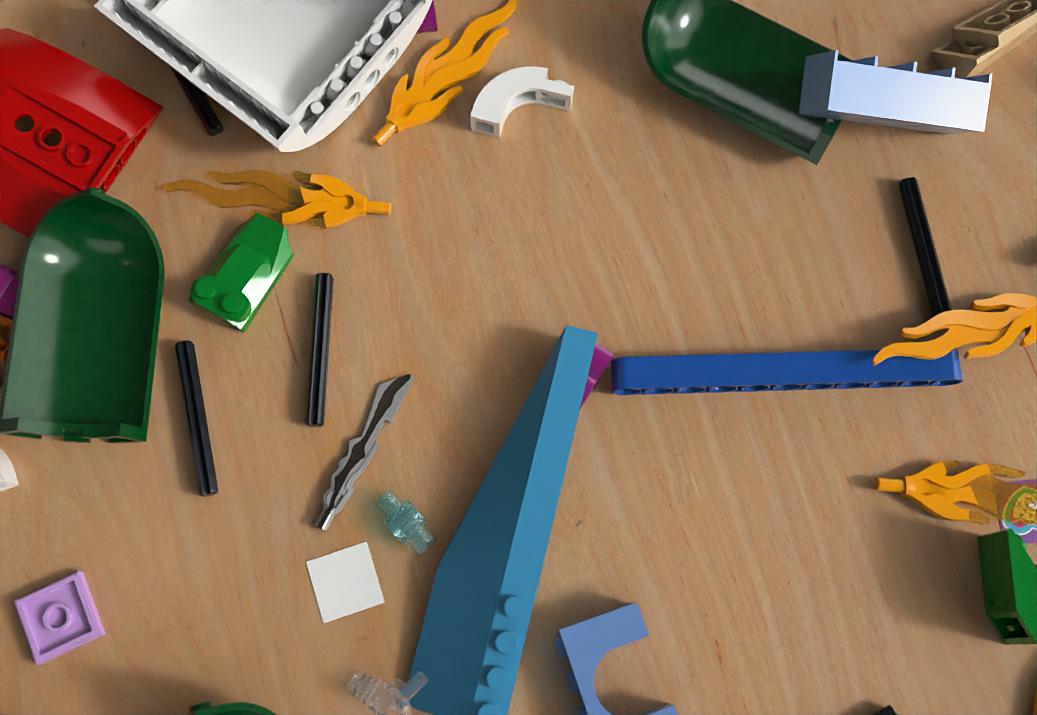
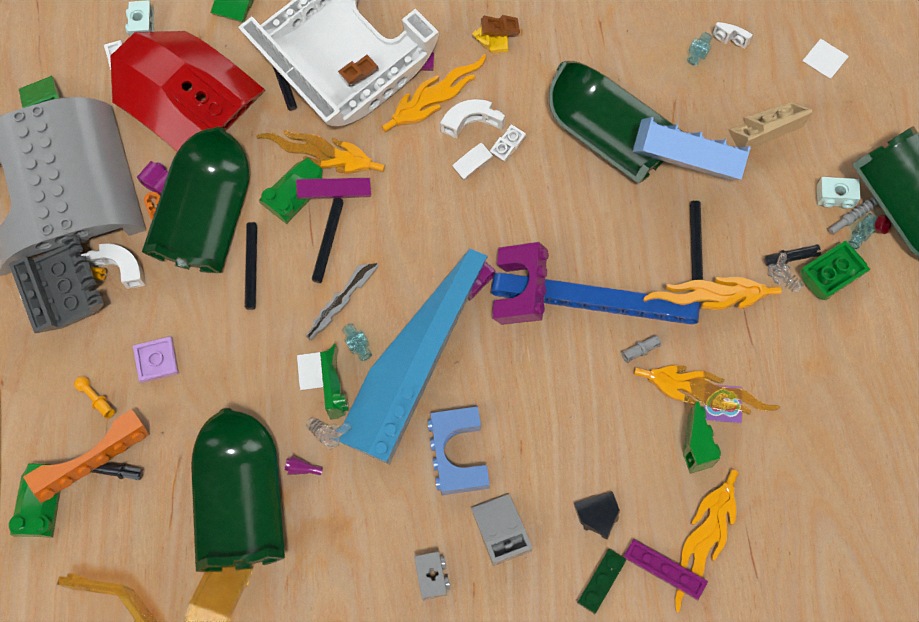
camera: 15 degrees right, 5 degrees down
(311, 258) = (333, 188): none -> magenta tile
(315, 50) = (358, 71): none -> dark orange slope
(387, 637) = (334, 399): none -> green slope
(535, 171) = (472, 161): none -> white slope
(586, 132) = (508, 143): none -> white slope
(687, 405) = (530, 303): none -> magenta arch
(879, 444) = (641, 348): none -> light grey pin

